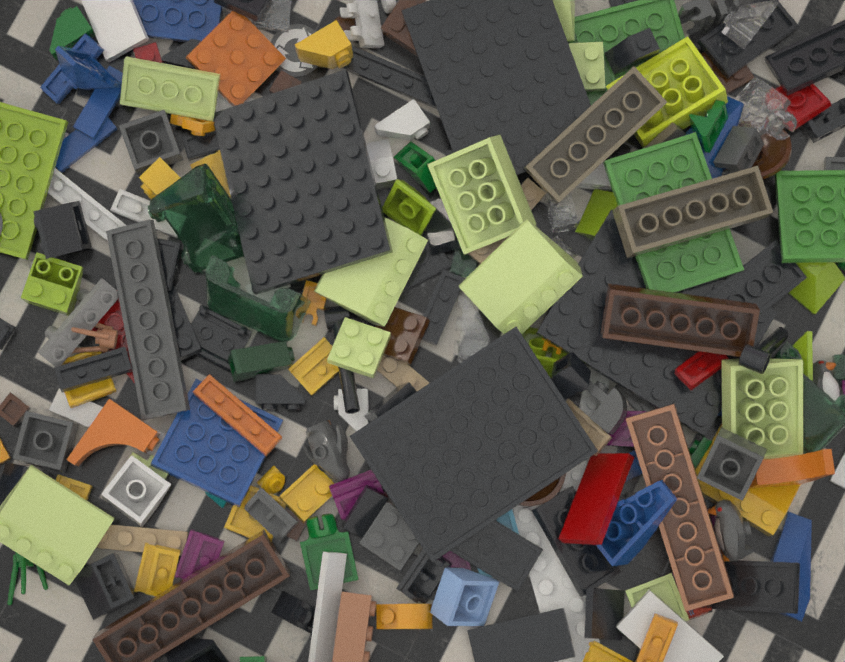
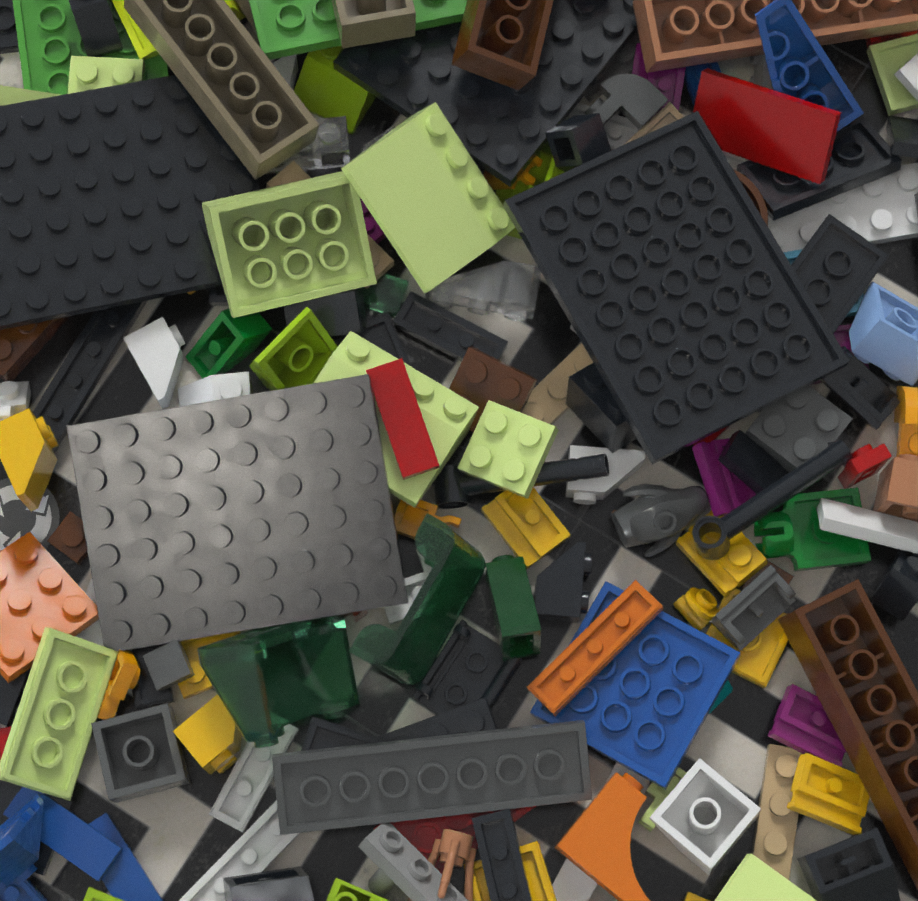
camera: 90 degrees left, 5 degrees down
(207, 152) = (168, 665): none -> dark grey tile
(339, 517) = (768, 500): none -> black piece
(367, 276) = (403, 419): none -> red tile
(371, 579) = (864, 464): none -> red plate

